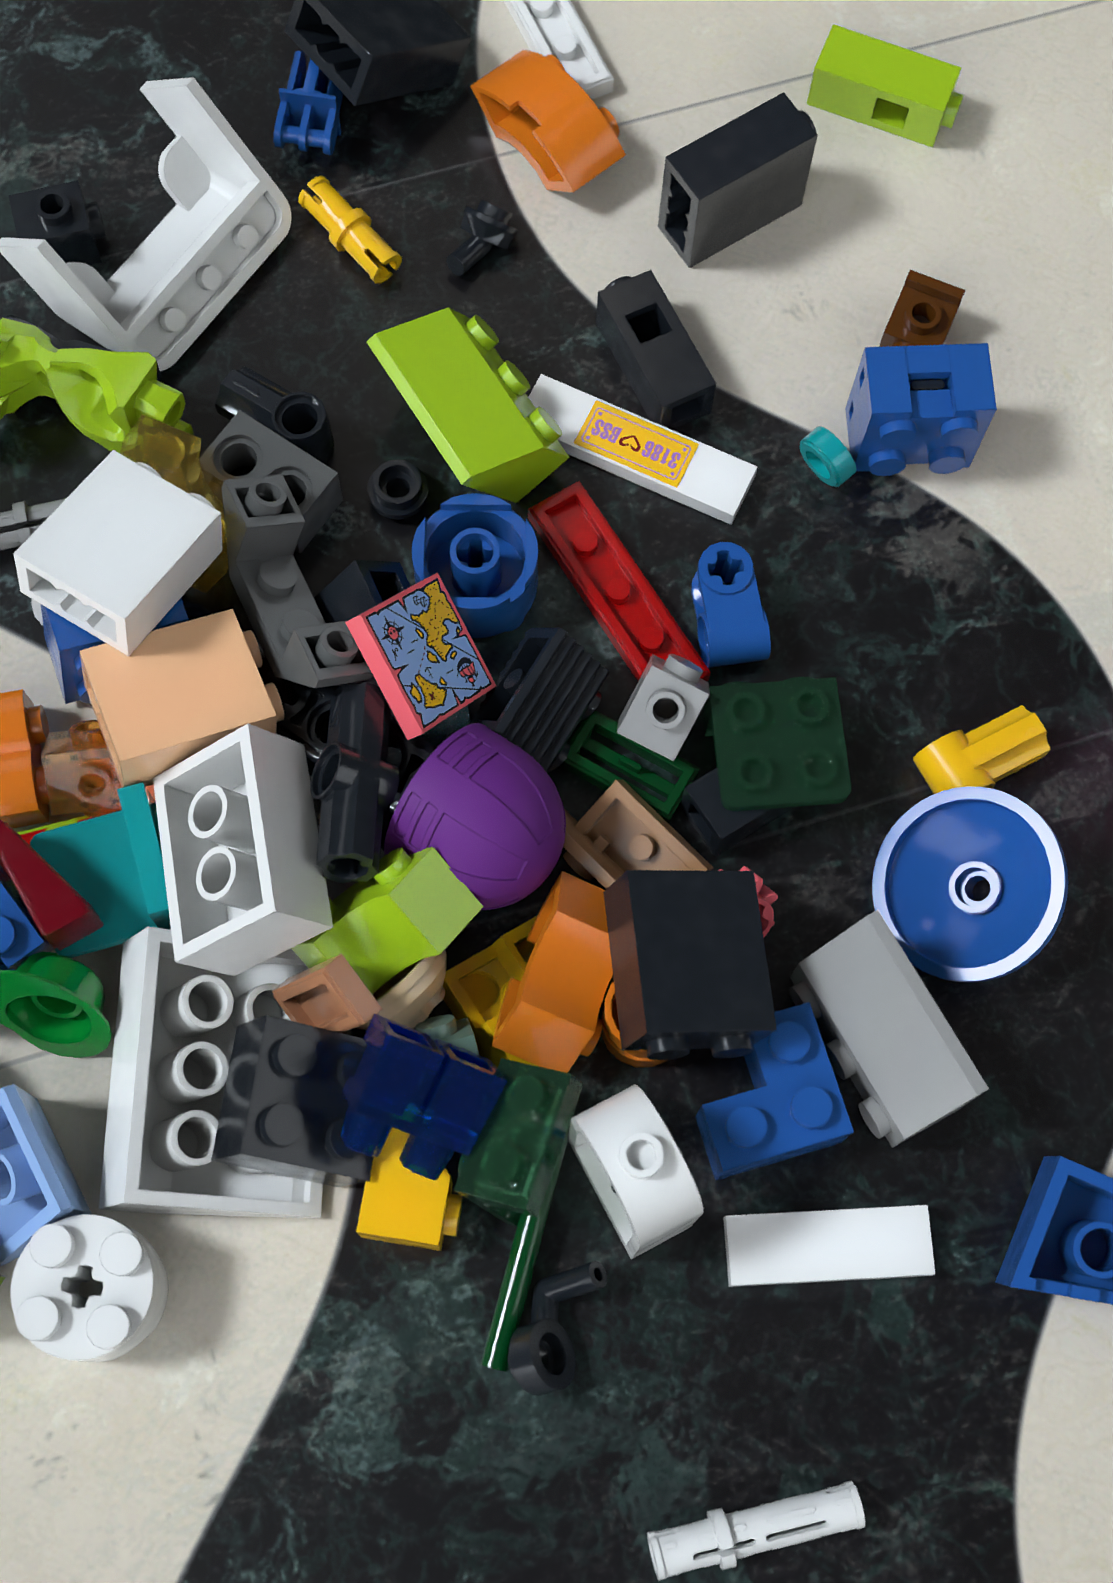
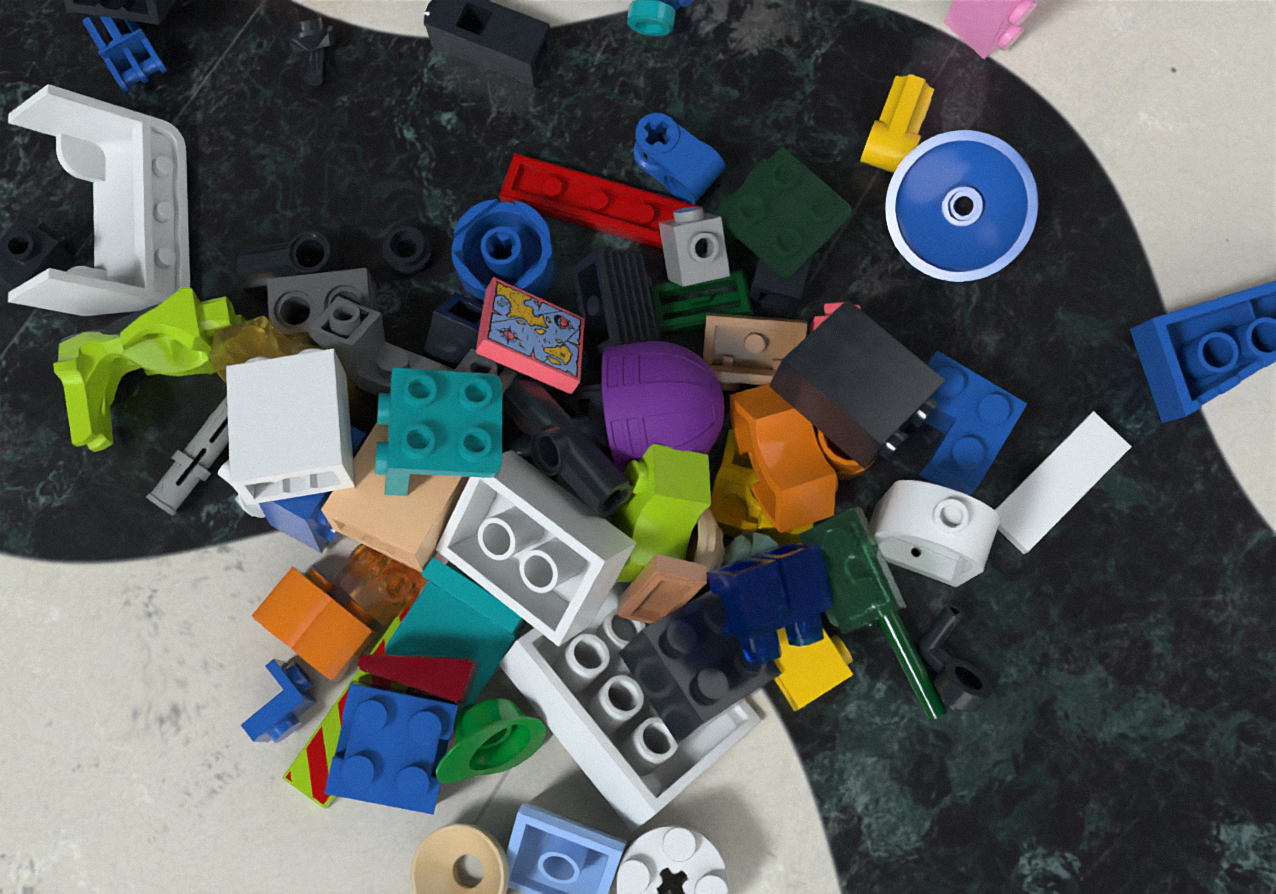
camera: 35 degrees left, 5 degrees up
(247, 661) = (439, 426): none -> teal bracket
(350, 229) = (224, 109): yellow pin -> none
(471, 402) = (409, 154): lime slope -> none
(645, 451) = (529, 106): white tile -> none
(755, 1530) = (1151, 689): white pin -> none
(885, 1031) = (993, 330): light grey slope -> none

